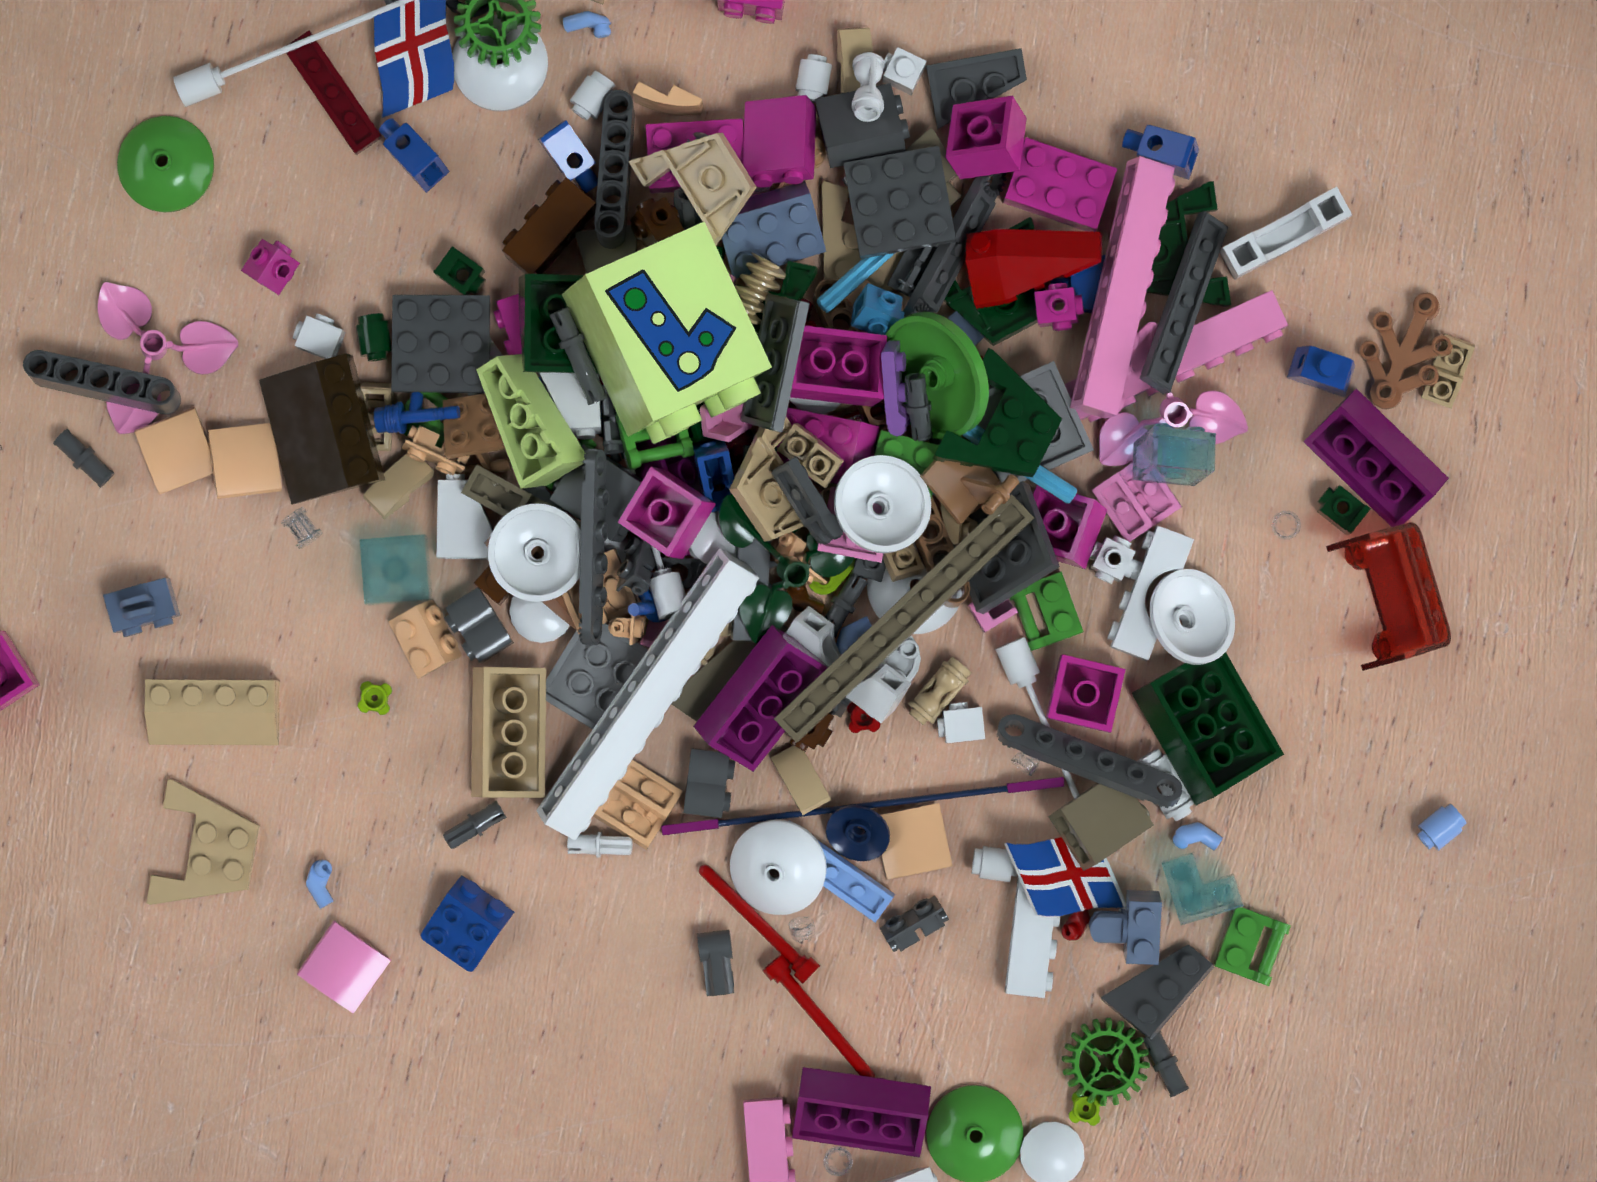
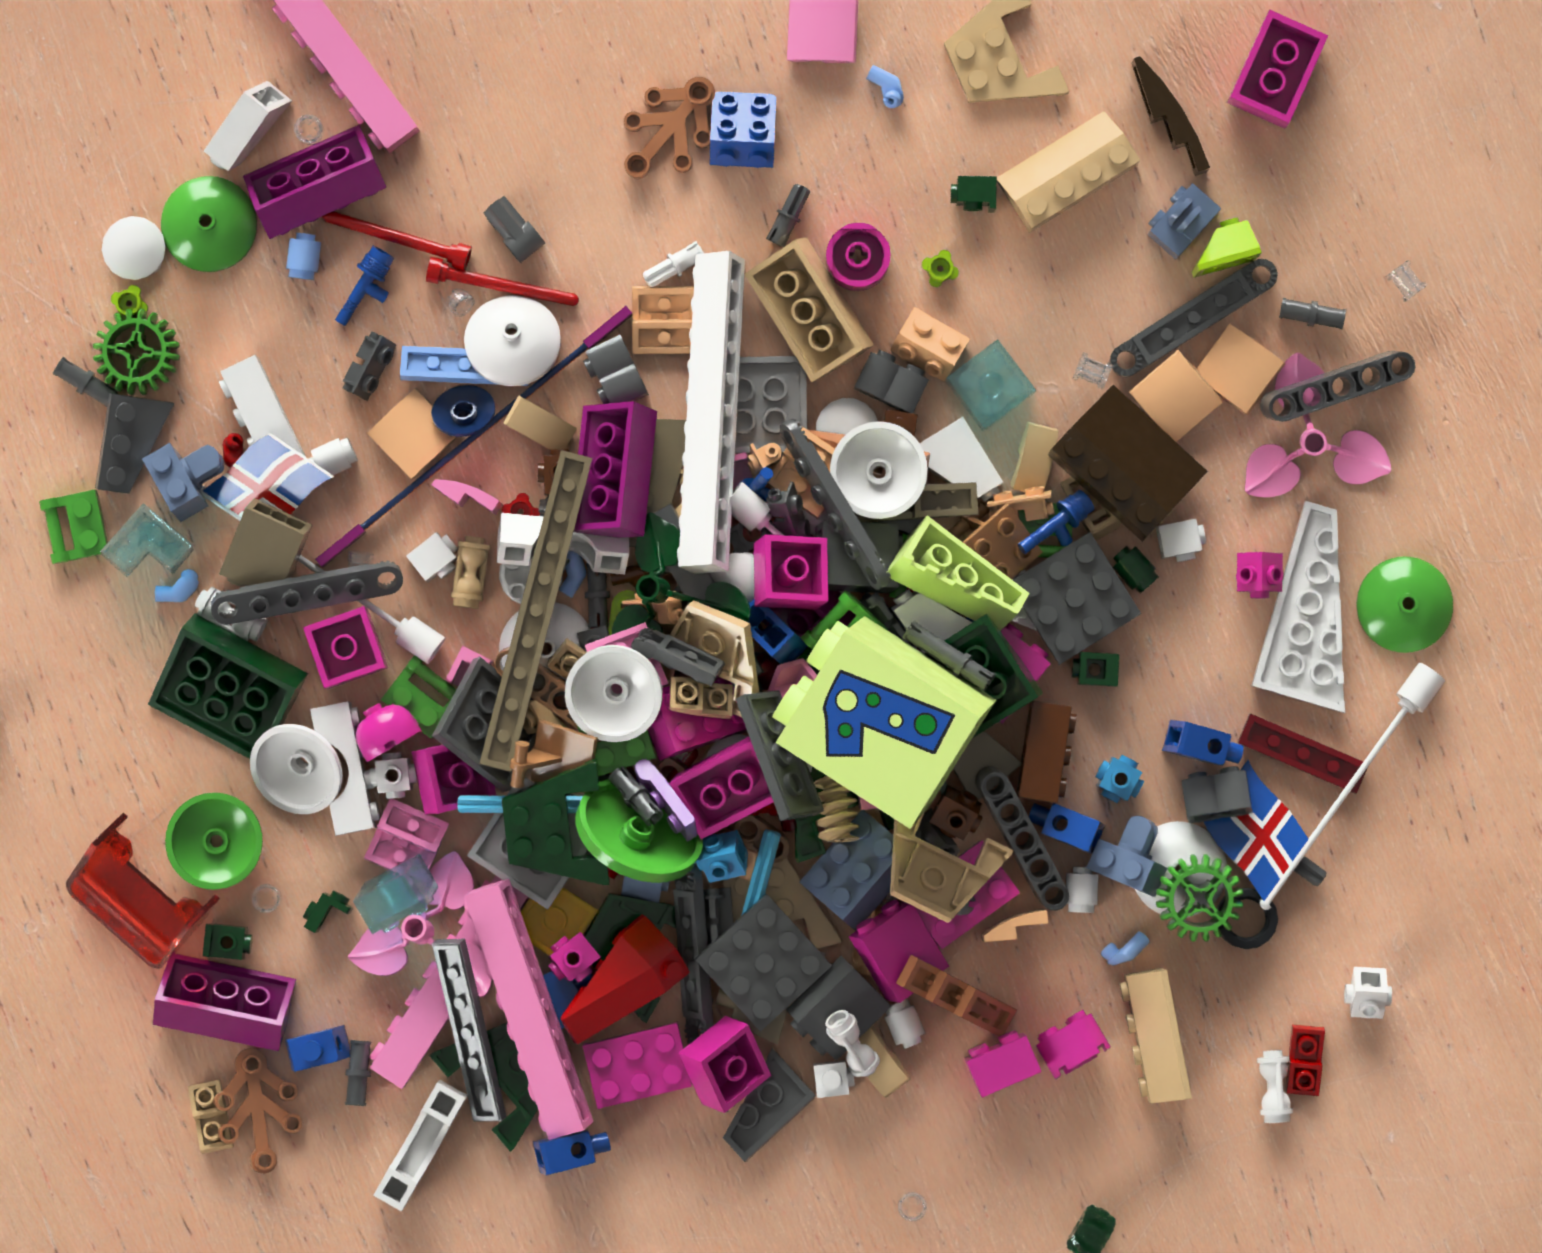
camera: 150 degrees right, 0 degrees up
(94, 715) = (1163, 106): none -> dark brown slope
(118, 559) = (1228, 247): none -> slope
(186, 518) = (1193, 317): none -> dark grey plate
(261, 197) = (1305, 628): none -> white wing
(303, 743) = (974, 192): none -> dark green brick
(420, 755) = (871, 270): none -> dark pink brick
(427, 102) = (1216, 795): none -> dark grey brick
(503, 180) = (1107, 774): none -> dark azure brick
(522, 967) = (673, 123): none -> nougat plant
(535, 93) = (1130, 860): none -> sand blue brick
(755, 72) = (956, 996): none -> nougat slope
(856, 1006) = (375, 266): none -> blue piece
(907, 764) = (461, 492): none -> bright pink slope
(911, 1053) = (303, 256): none -> light blue brick
(1043, 345) = (564, 918): none -> yellow plate
(1096, 601) = (384, 729): none -> dark pink cylinder
(1250, 485) = (317, 912): none -> dark green bracket
(1300, 328) = (358, 1073): none -> dark grey pin
(1323, 596) = (191, 847): none -> bright green dish

